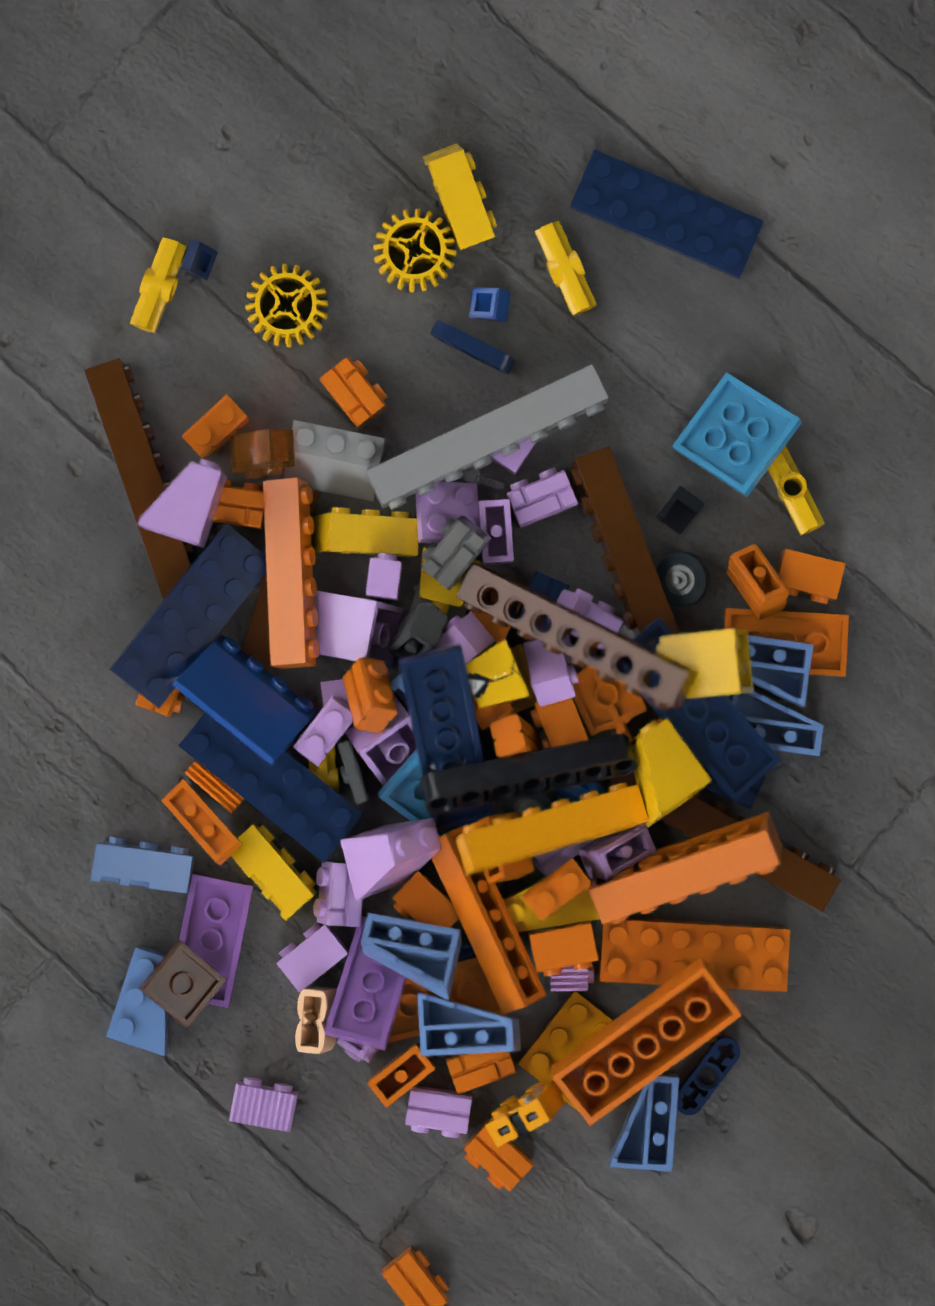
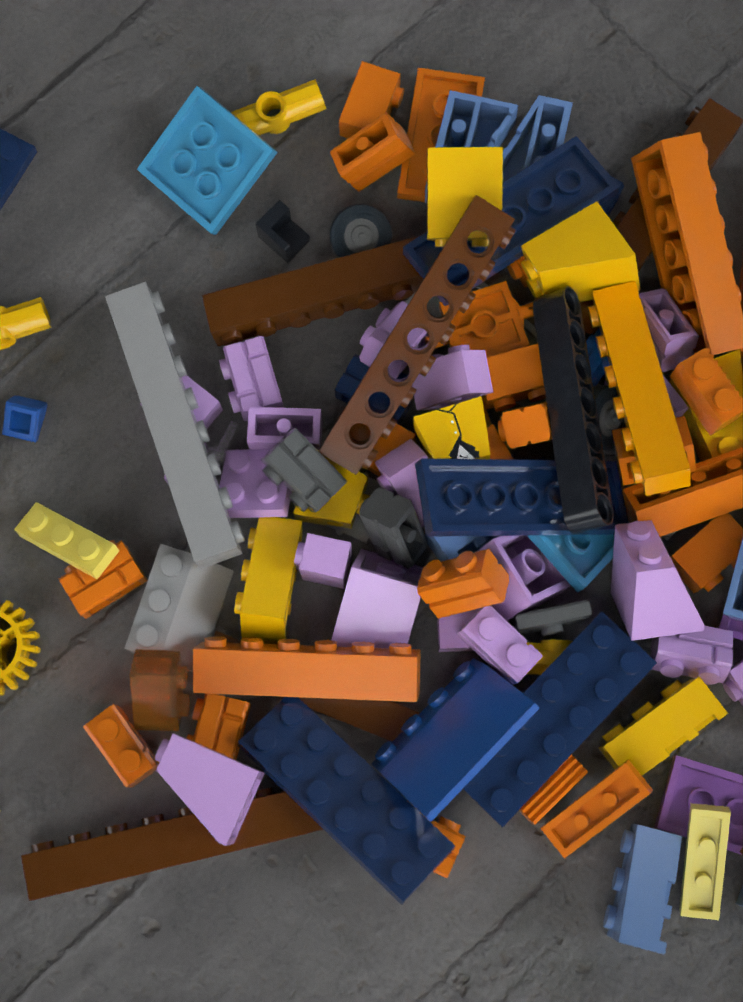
camera: 85 degrees left, 10 degrees down
(168, 913) = (704, 861): none -> light yellow plate
(382, 357) = (66, 540): none -> light yellow plate
(472, 347) = (69, 439): dark blue beam -> none

